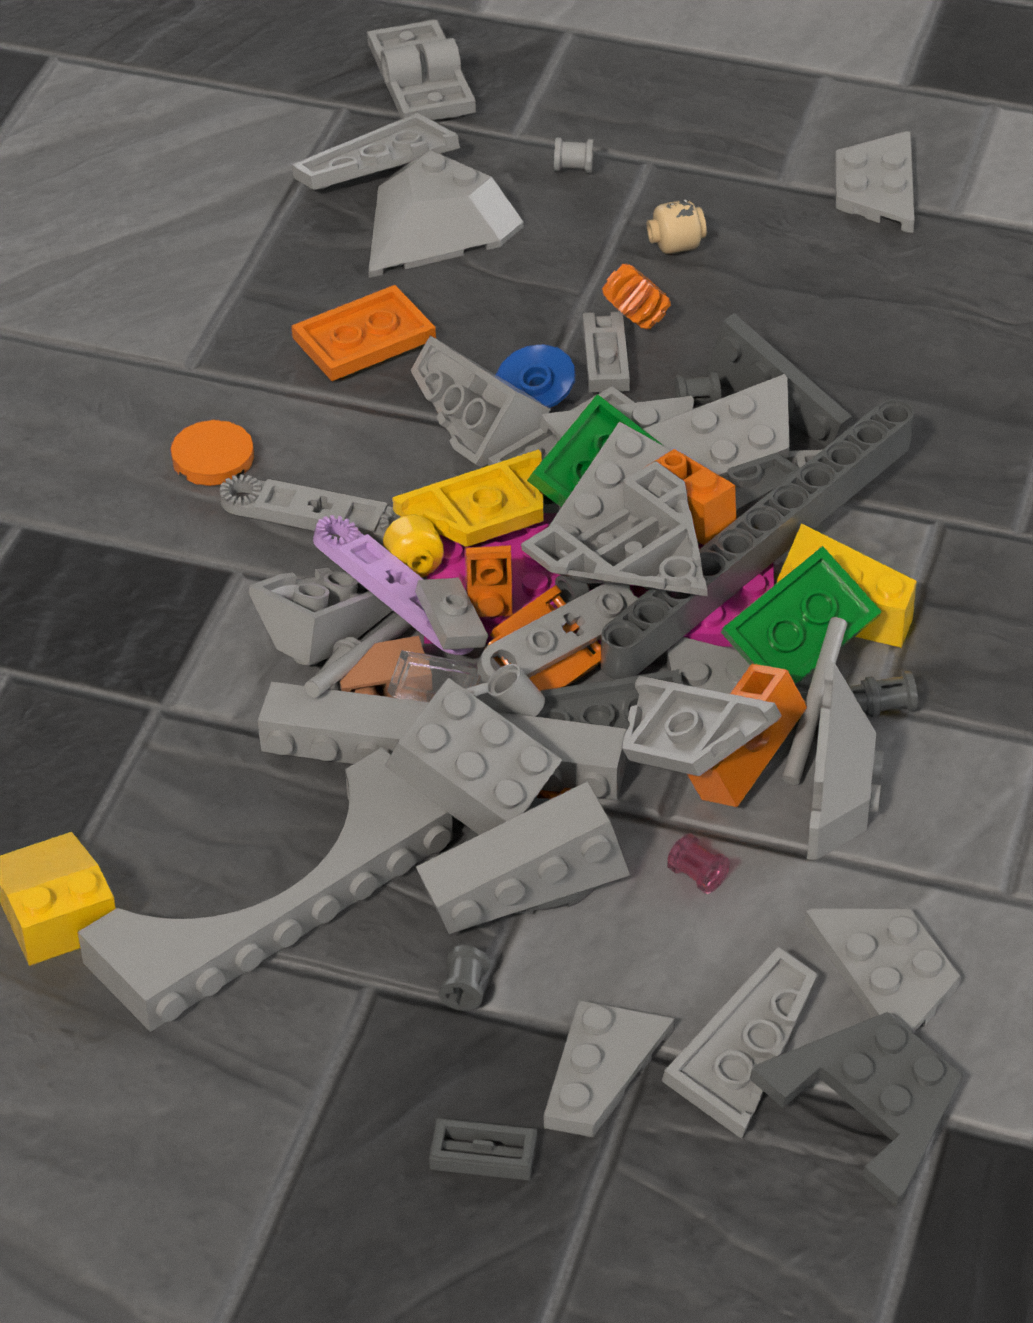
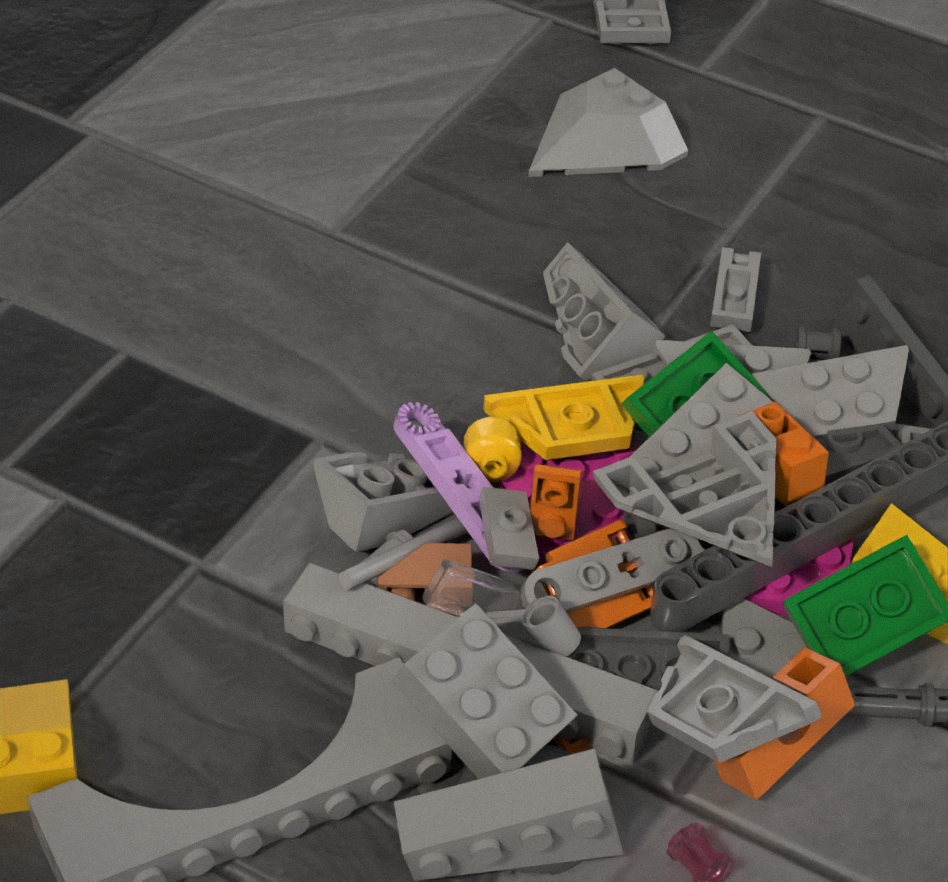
camera: 10 degrees right, 0 degrees up
(212, 452) = (329, 316): orange tile -> none
(300, 505) = (392, 383): light grey piece -> none
(363, 332) = (506, 227): orange plate -> none
(375, 151) = (565, 61): light grey wing -> none
(540, 366) = (665, 291): blue dish -> none
(573, 155) = (751, 97): light grey bush -> none
(636, 296) = (777, 241): orange gear -> none
(677, 226) = (834, 181): tan head -> none
(814, 699) = (864, 699): light grey bar -> none
(842, 769) = (877, 787): light grey wedge -> none

